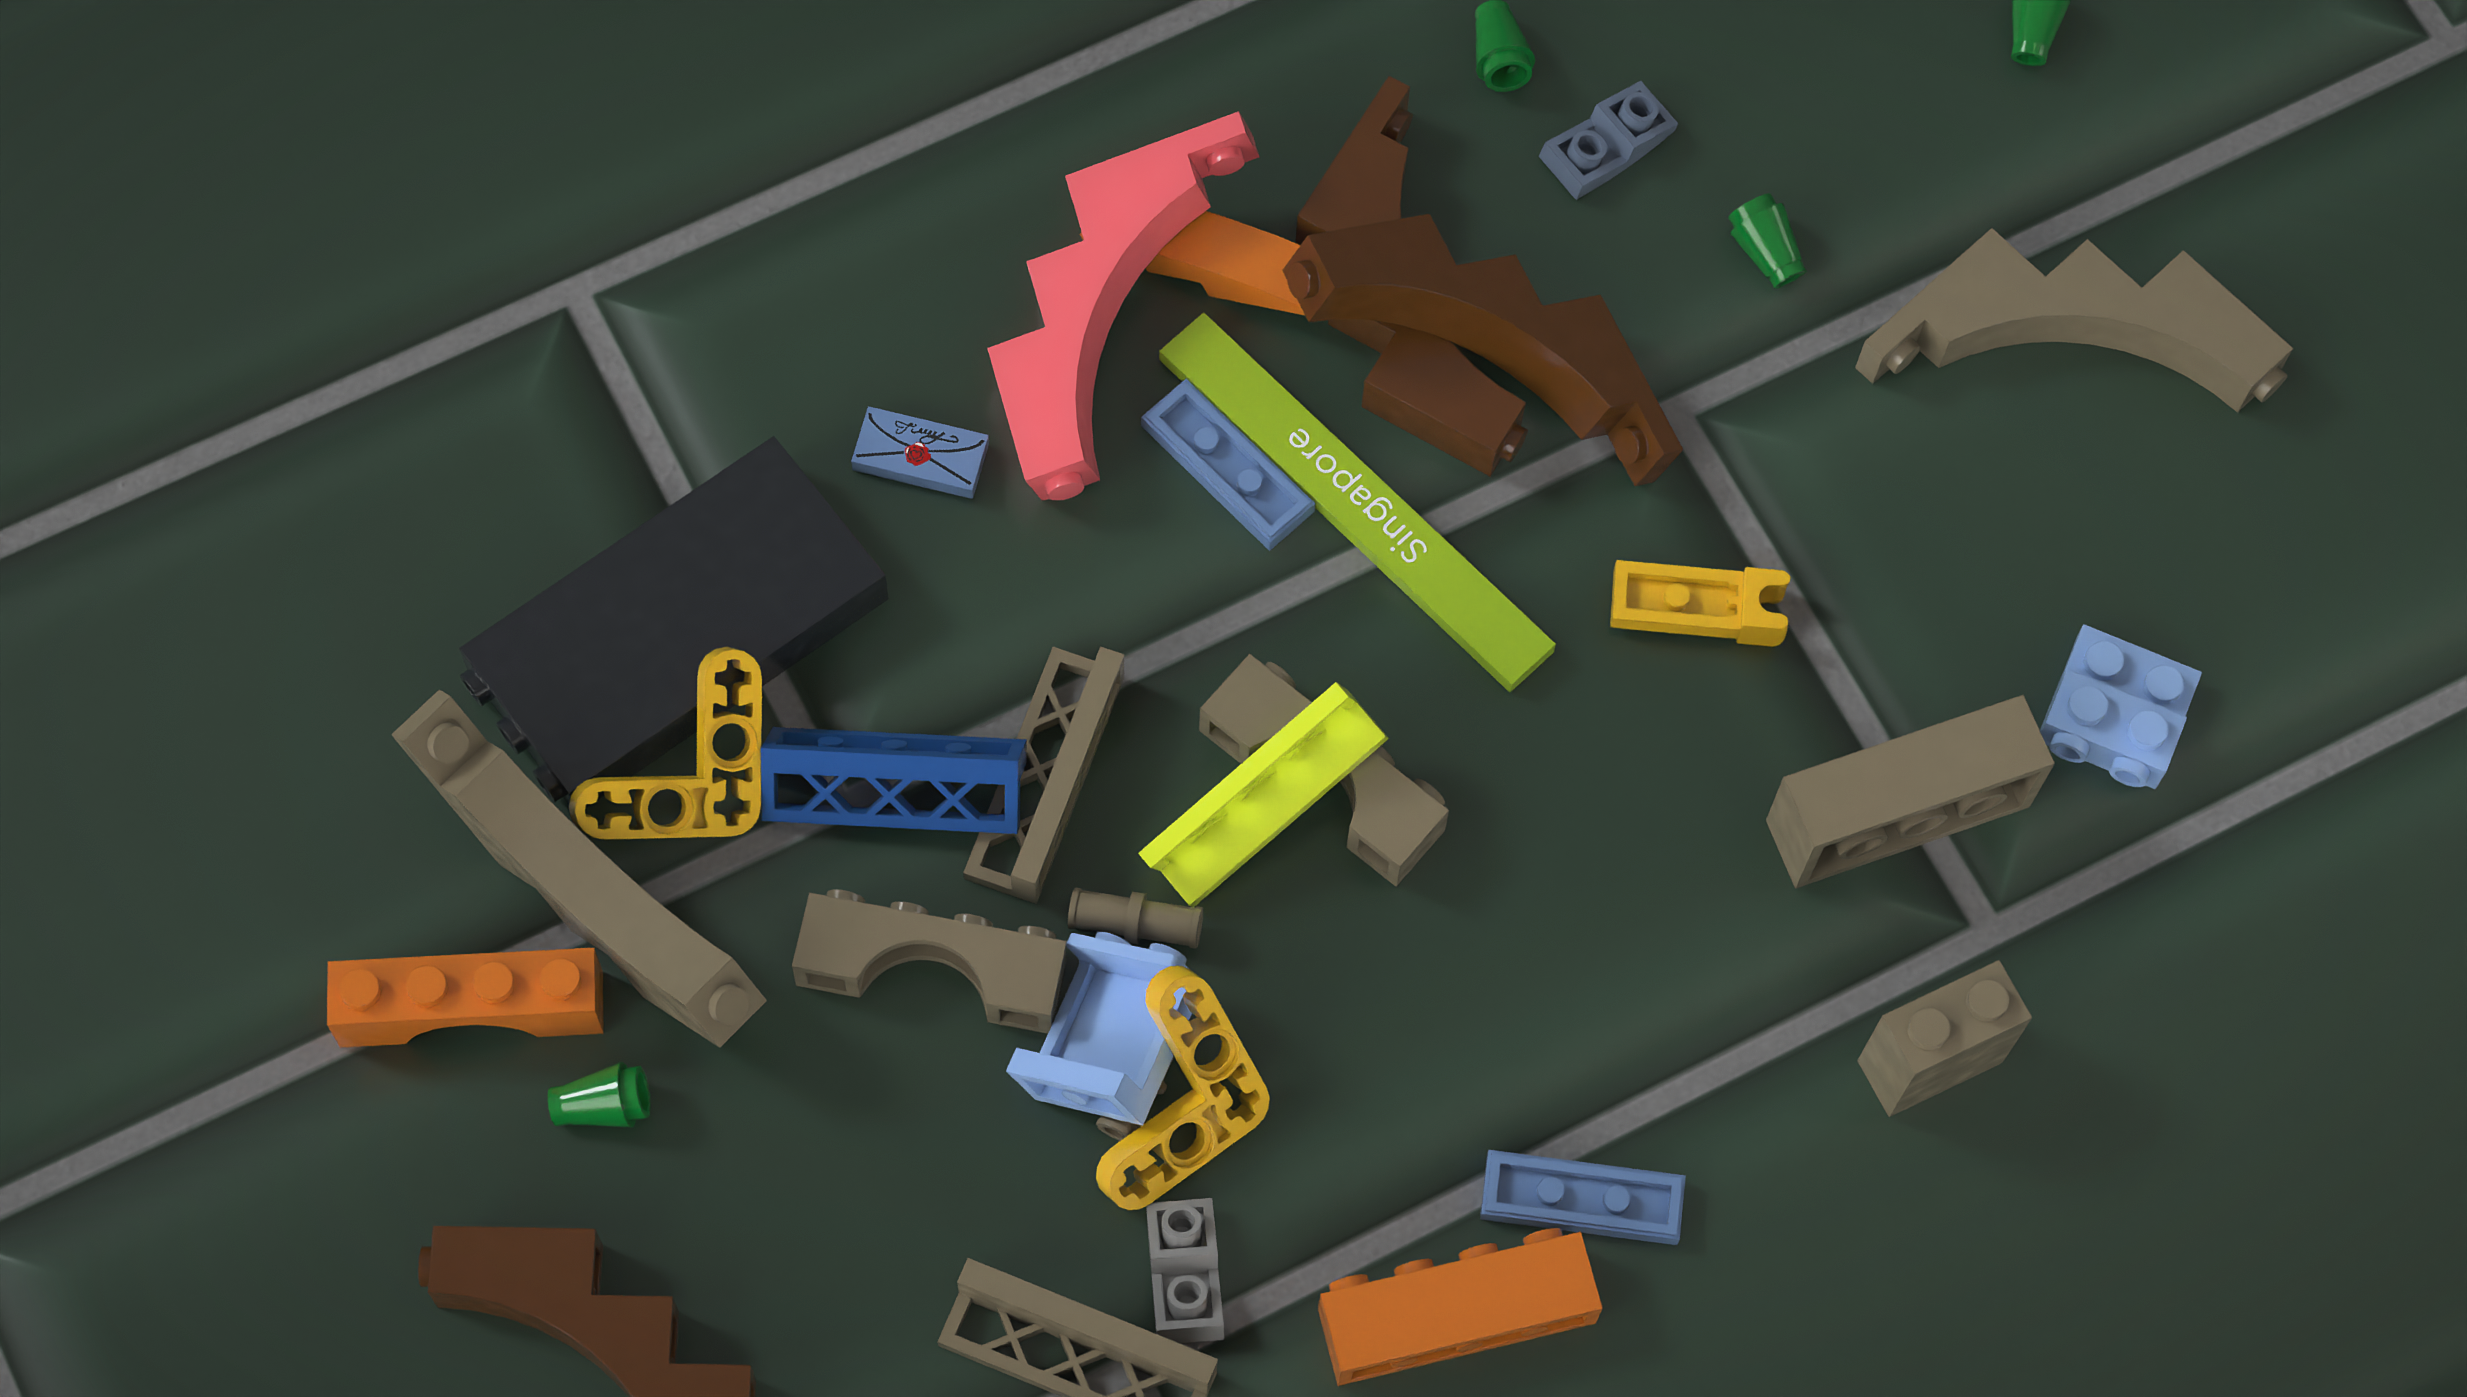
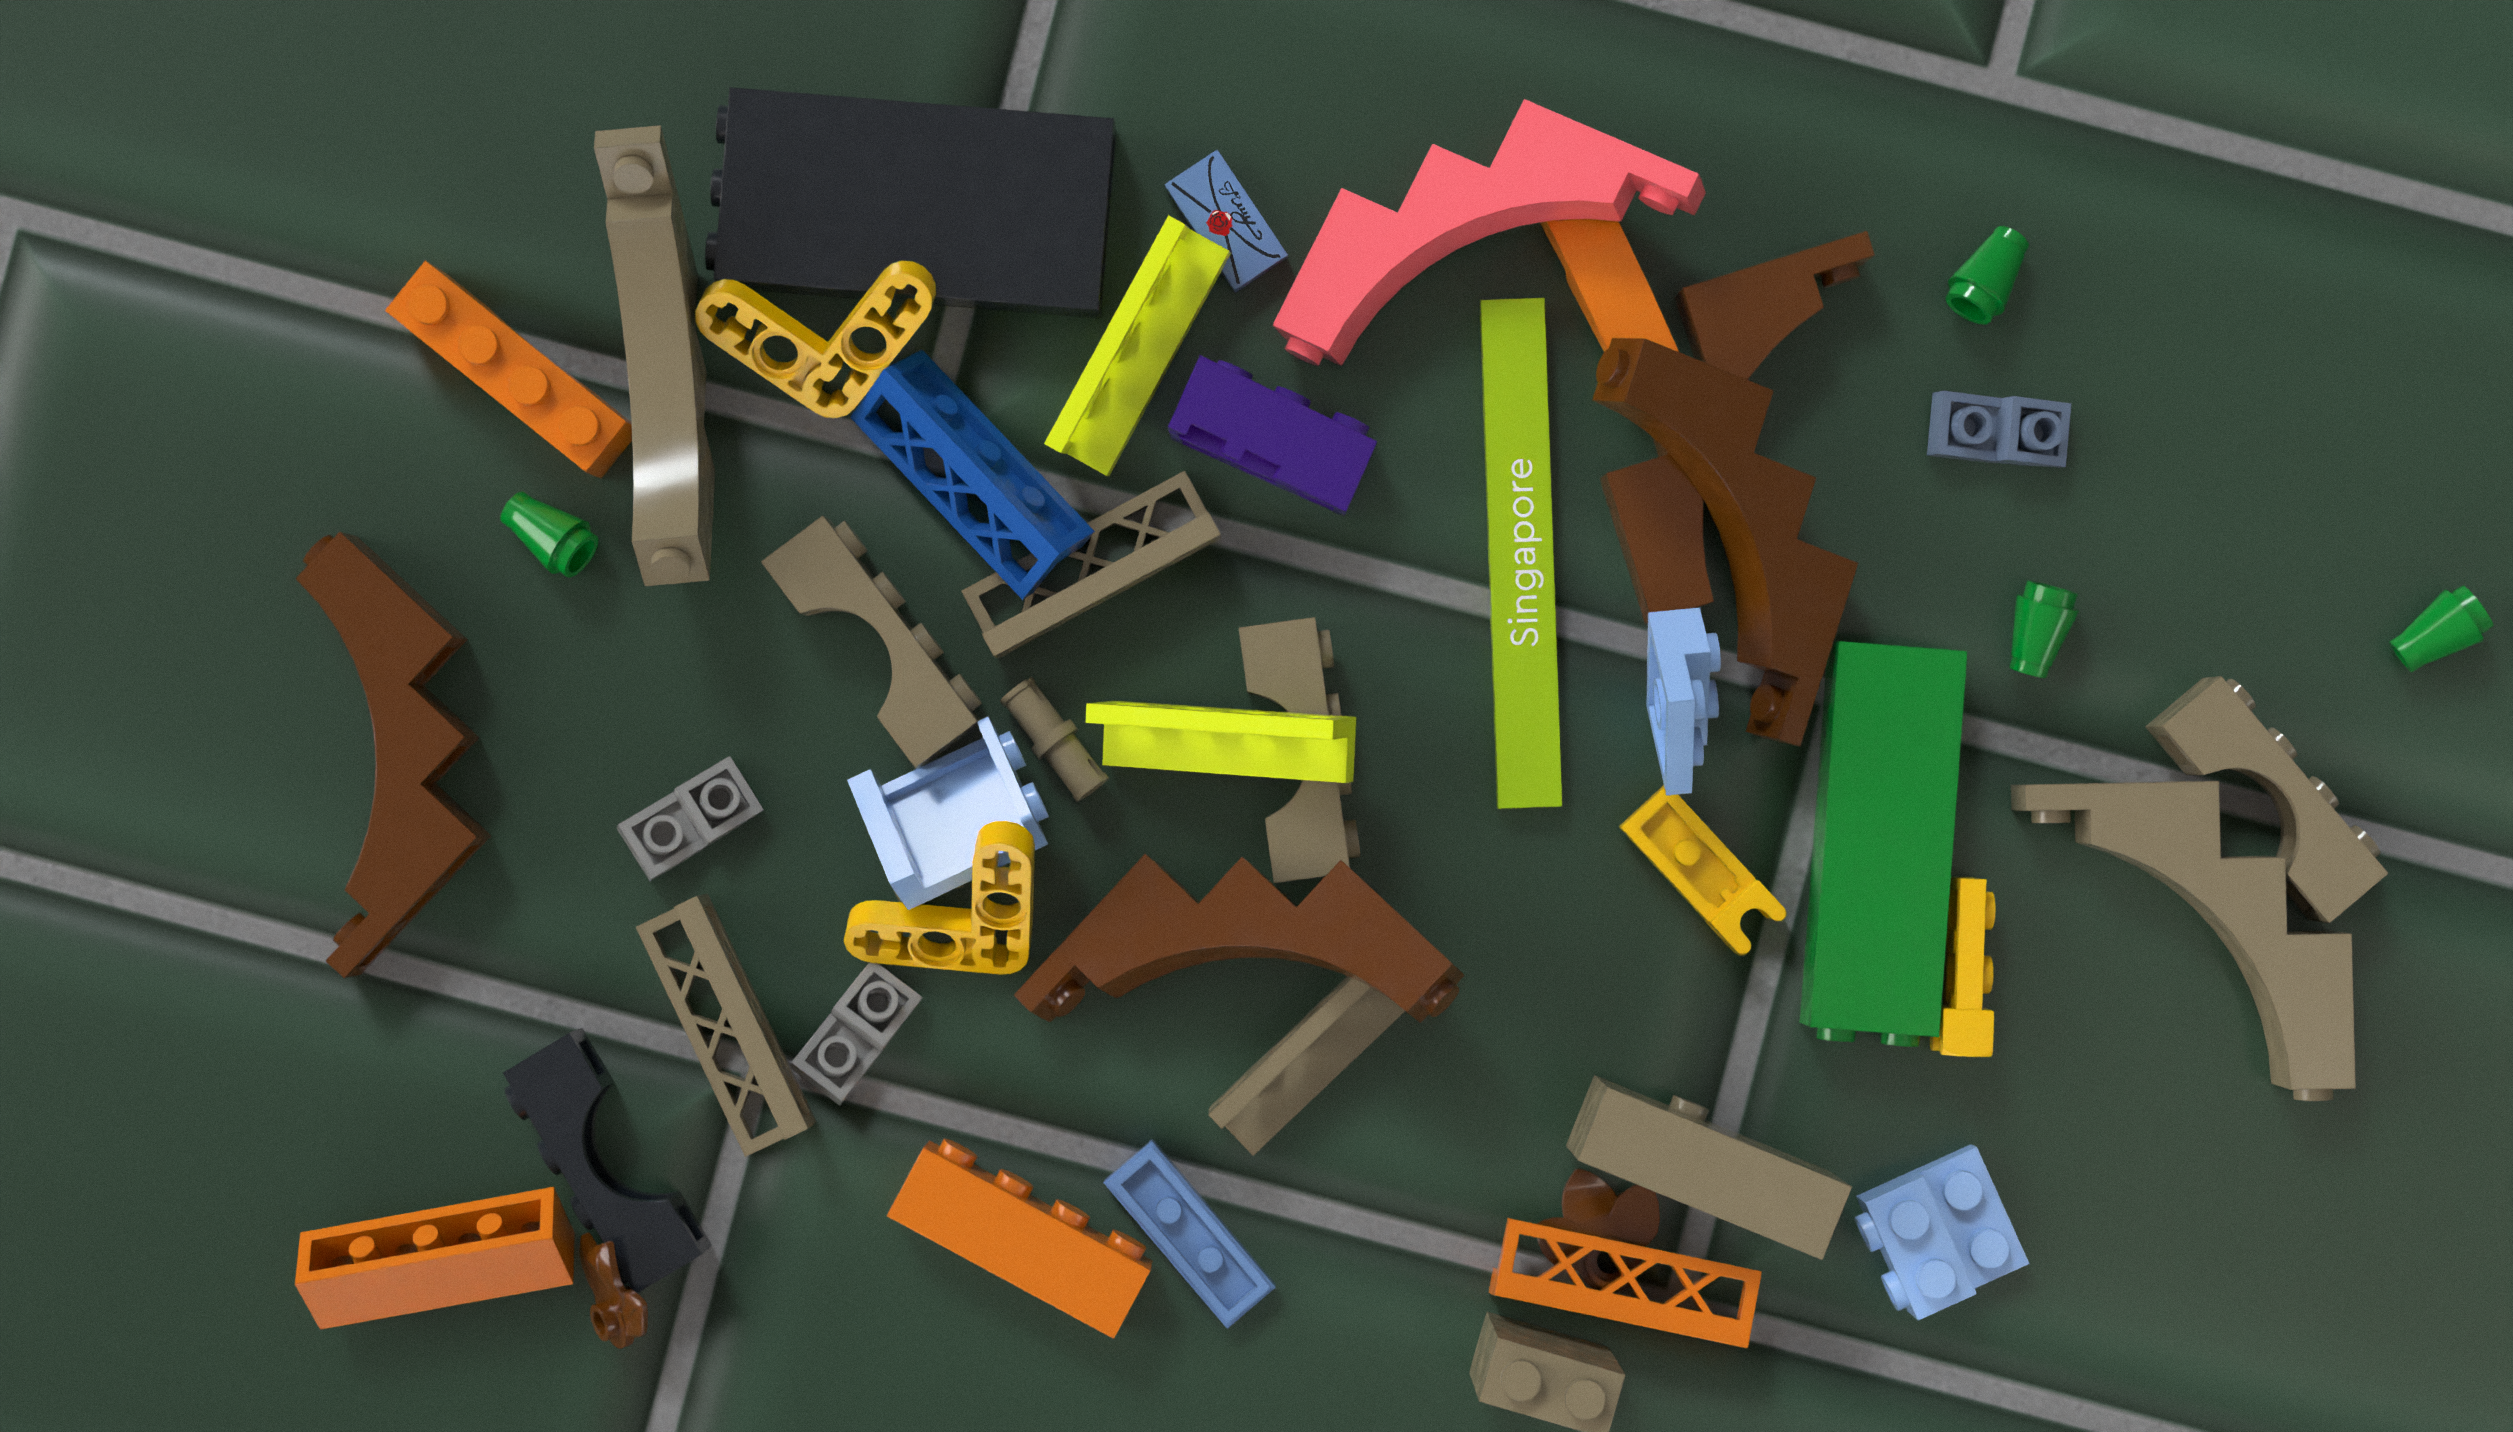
camera: 45 degrees right, 20 degrees up
(905, 1223) = (689, 818): none -> light grey slope
(939, 585) = (1138, 346): none -> neon yellow fence
(1095, 562) = (1272, 435): none -> dark purple wedge
(1227, 464) = (1451, 437): medium blue tile -> none
(1347, 972) = (1158, 927): none -> reddish brown arch
(1546, 966) = (1303, 1062): none -> dark tan fence
(1562, 480) = (1680, 692): none -> light blue plate
(1807, 473) = (1883, 842): none -> green brick
(1873, 917) = (1595, 1210): none -> reddish brown plate
(1950, 957) = (1620, 1307): none -> orange fence
(1962, 202) = (2323, 856): none -> dark tan arch
(1983, 542) = (1968, 973): none -> yellow plate

